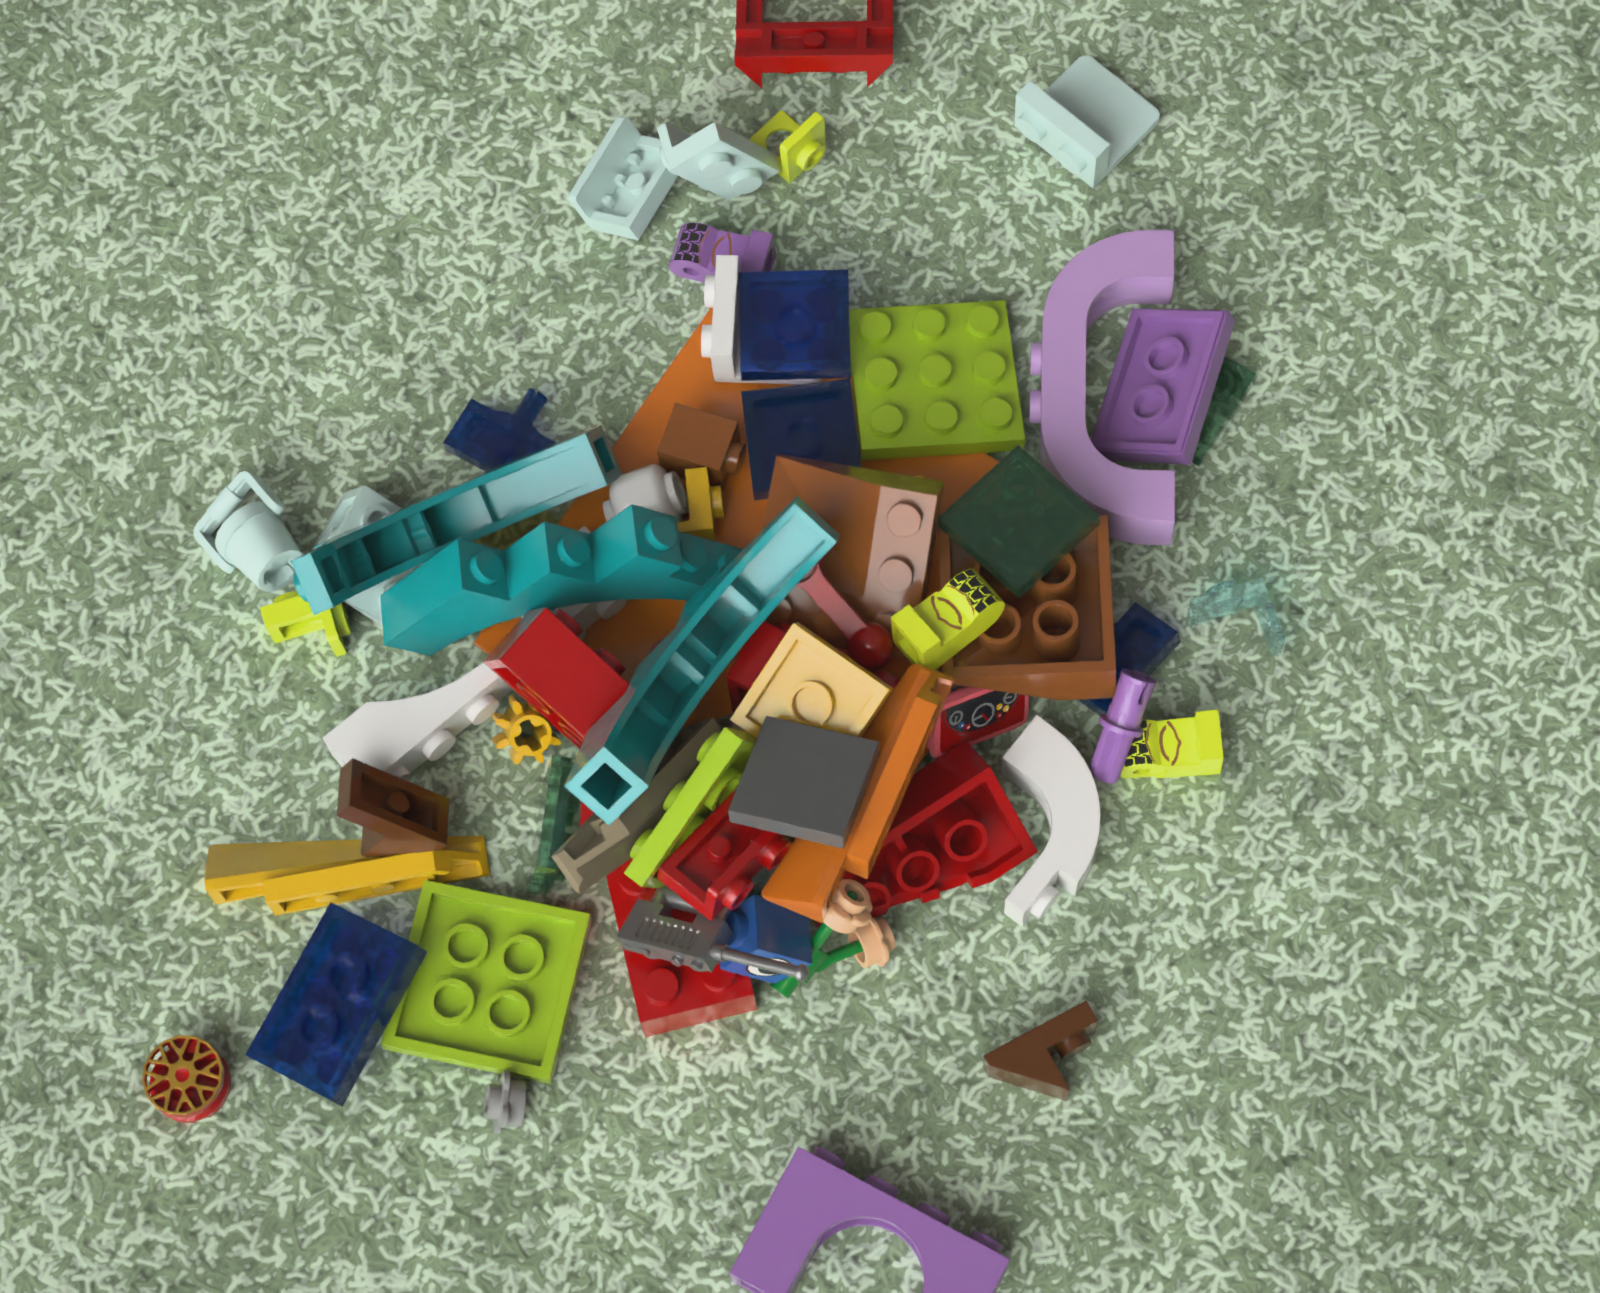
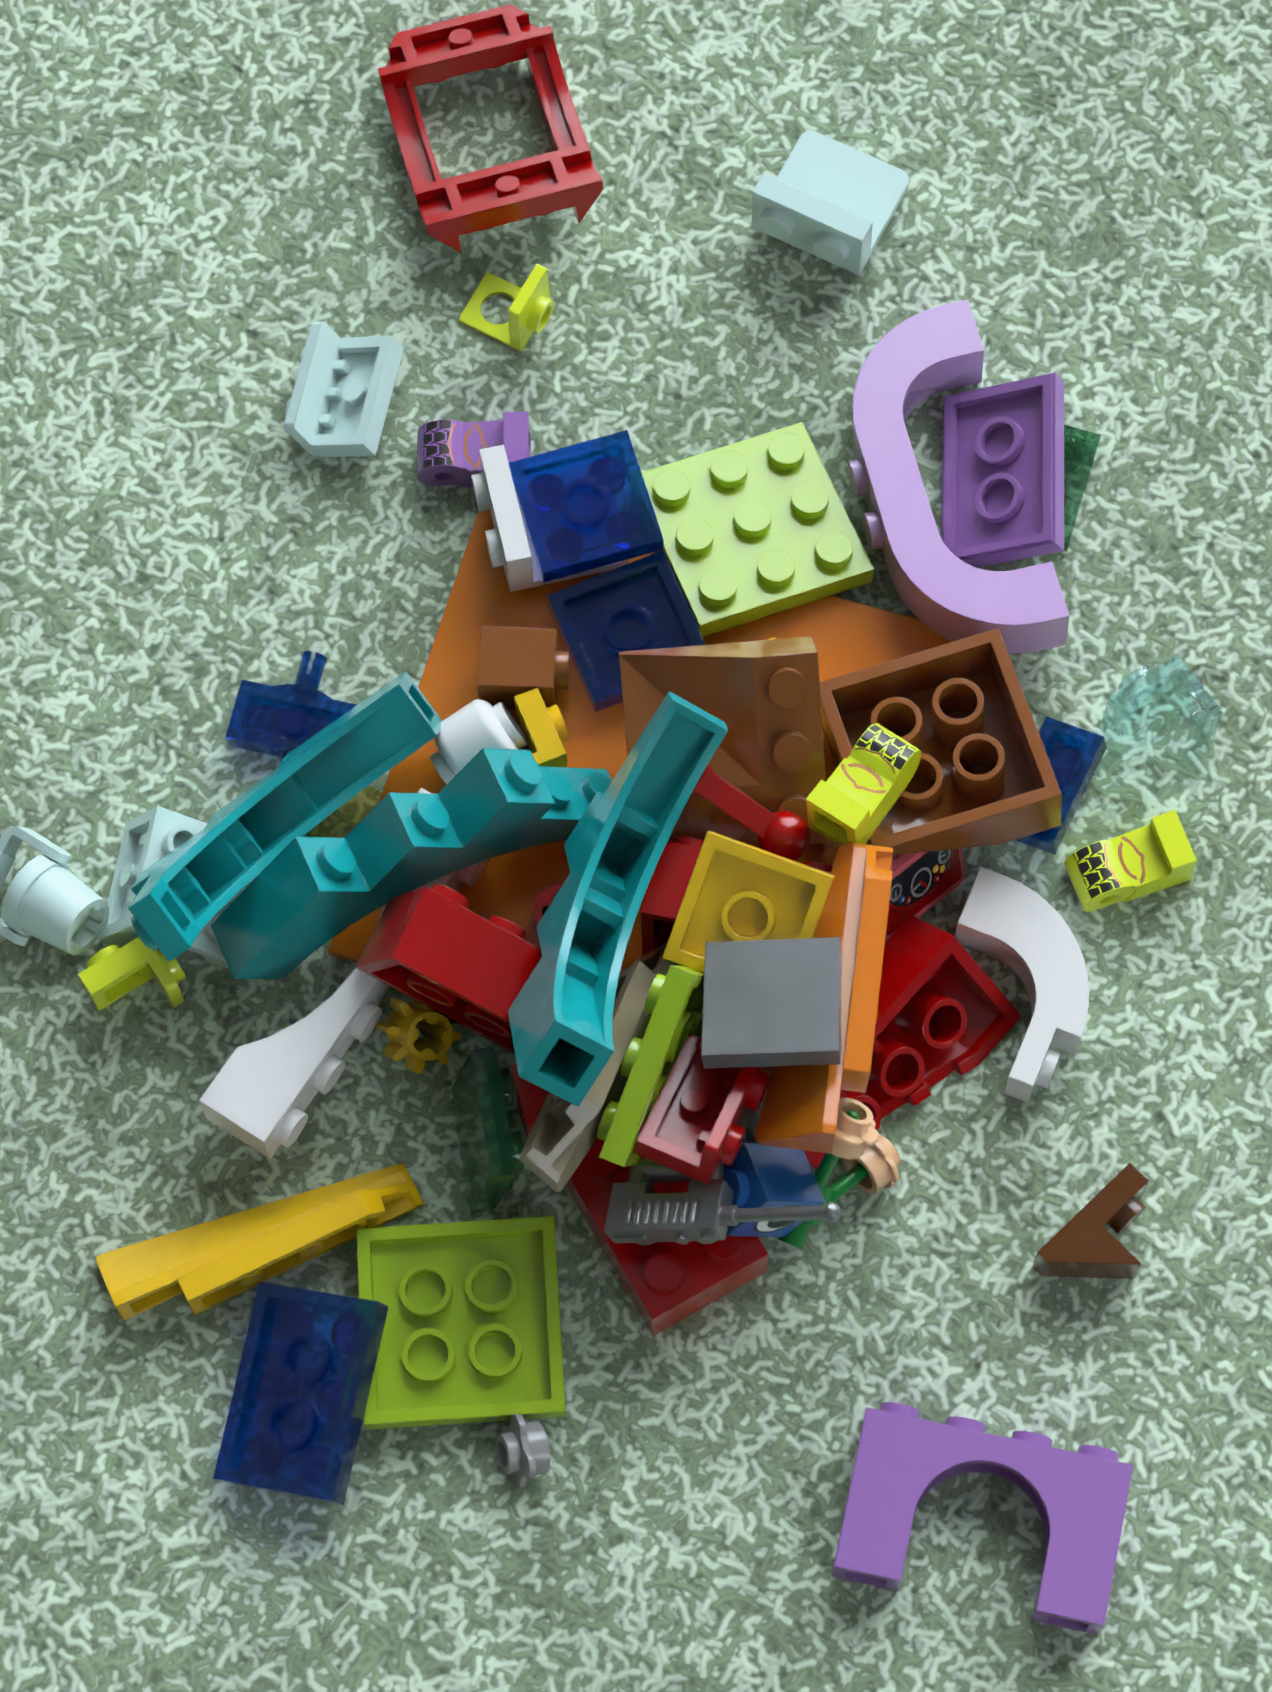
camera: 20 degrees left, 0 degrees up
(187, 1079) = (154, 1524): wheel -> none
(392, 811) = (303, 1162): reddish brown slope -> none
(716, 159) = (440, 344): light aqua bracket -> none
(1018, 521) = (907, 659): clear green tile -> none
(1121, 724) = (1077, 852): medium lavender axle -> none

